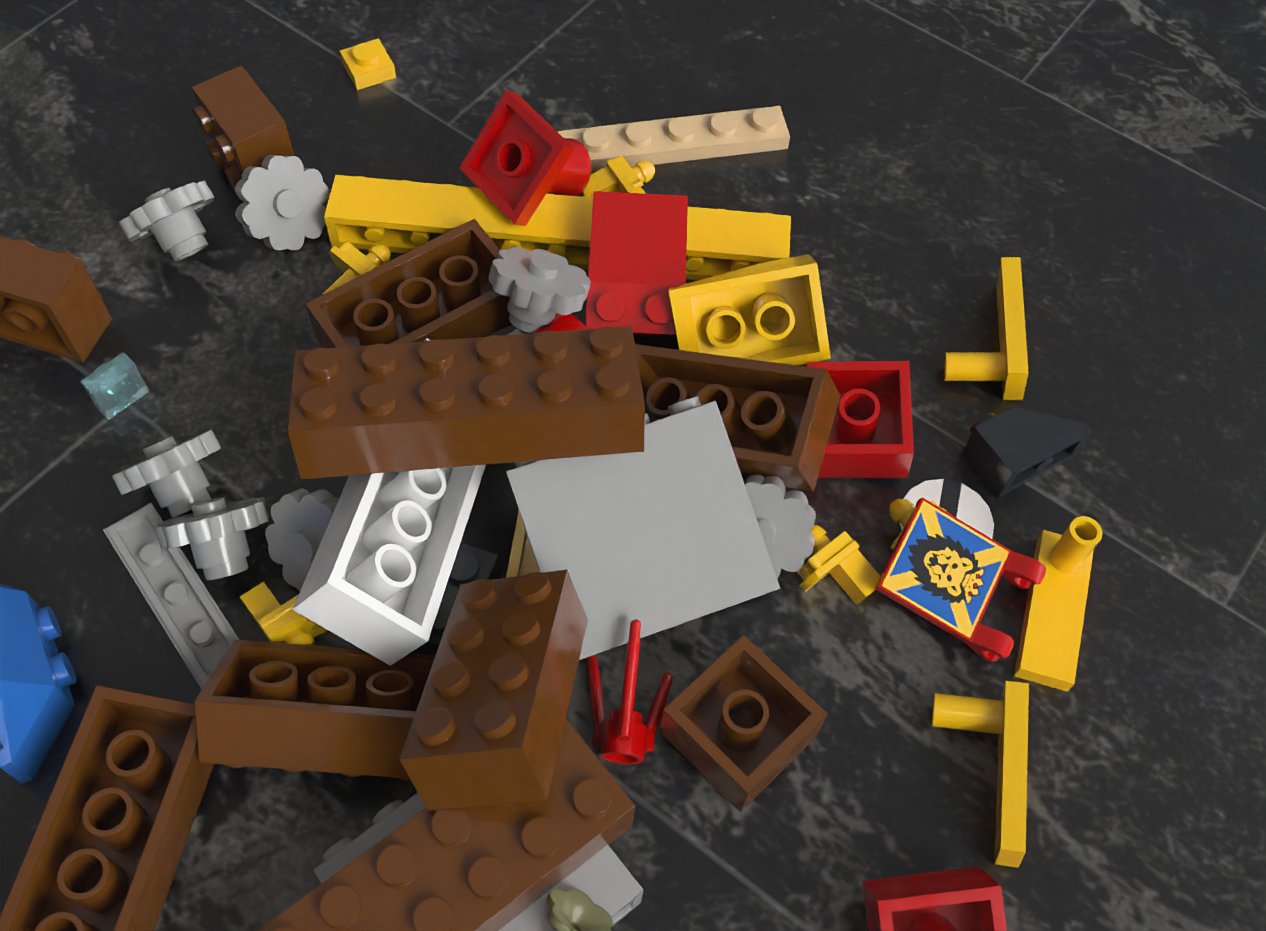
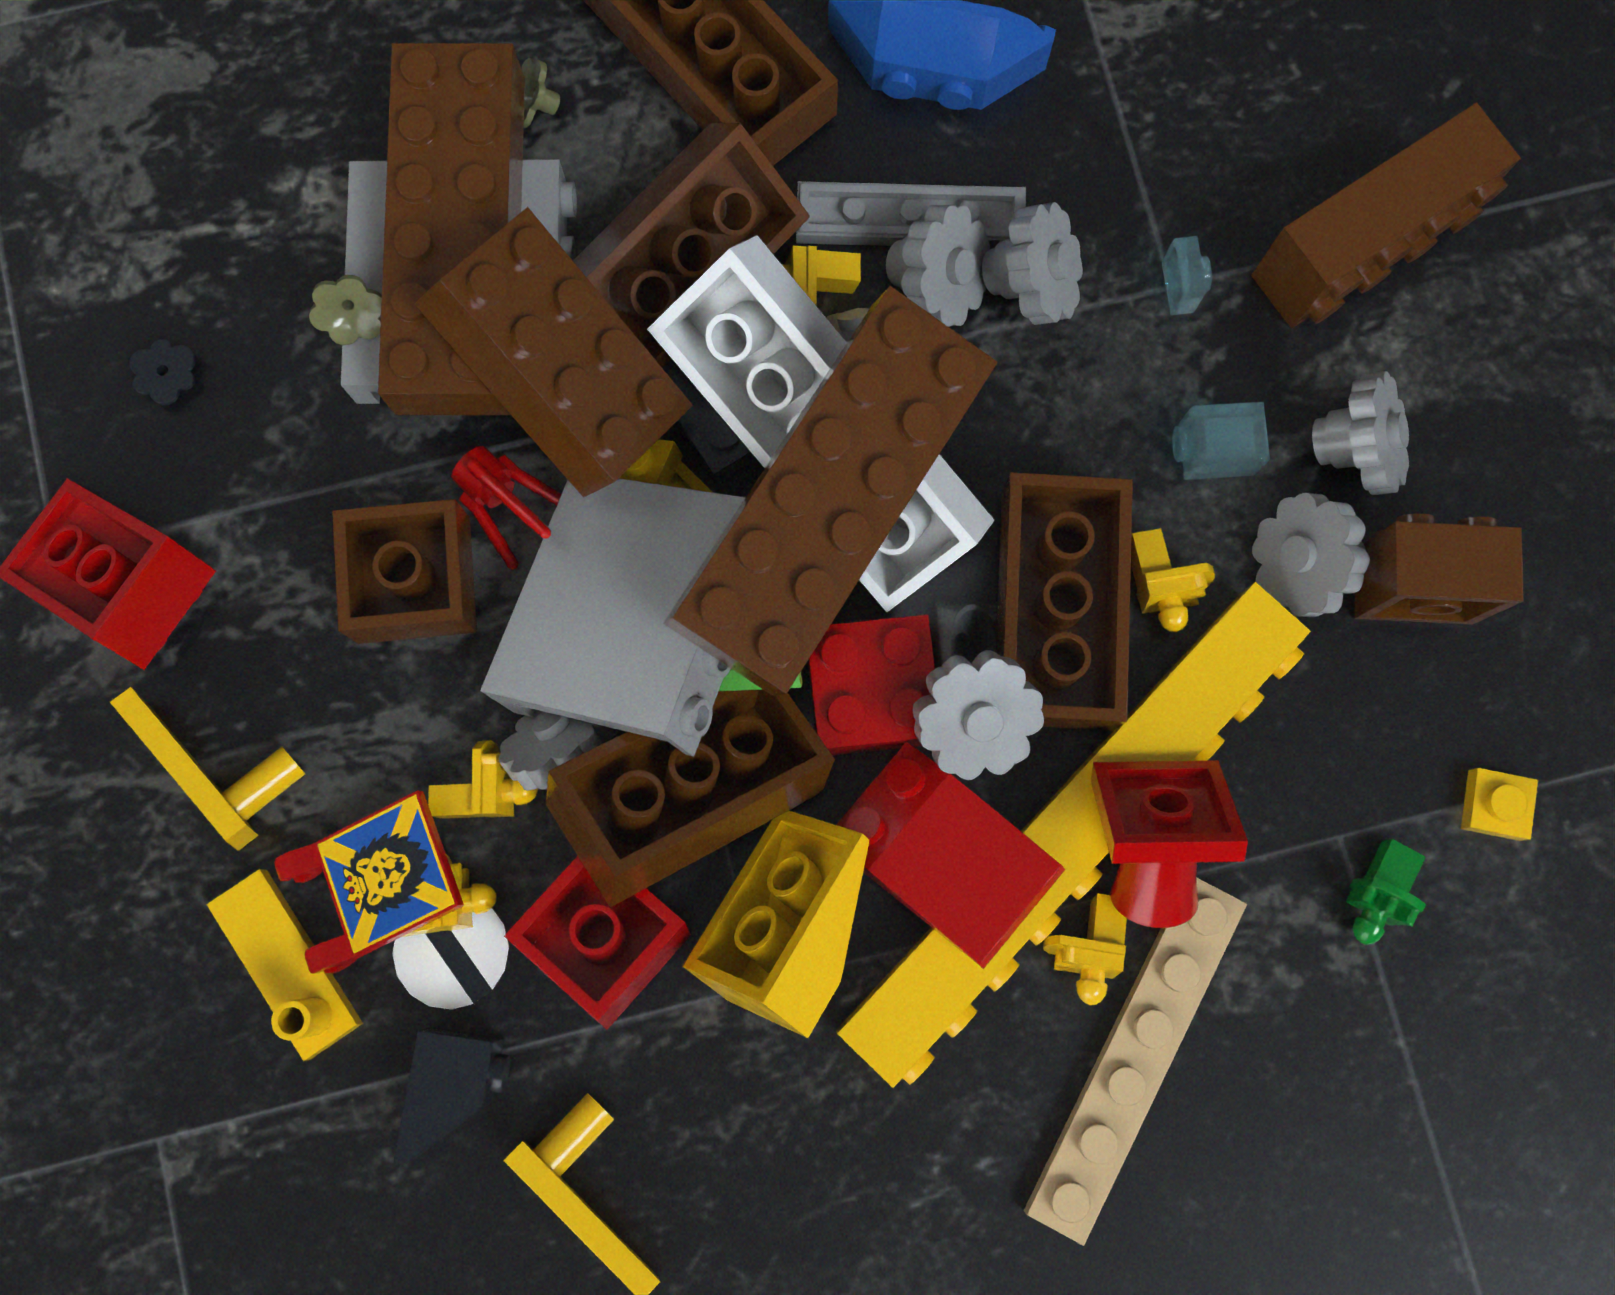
camera: 130 degrees right, 20 degrees up
(231, 297) = (1222, 440): none -> clear light blue brick
(464, 84) = (1385, 891): none -> green piece

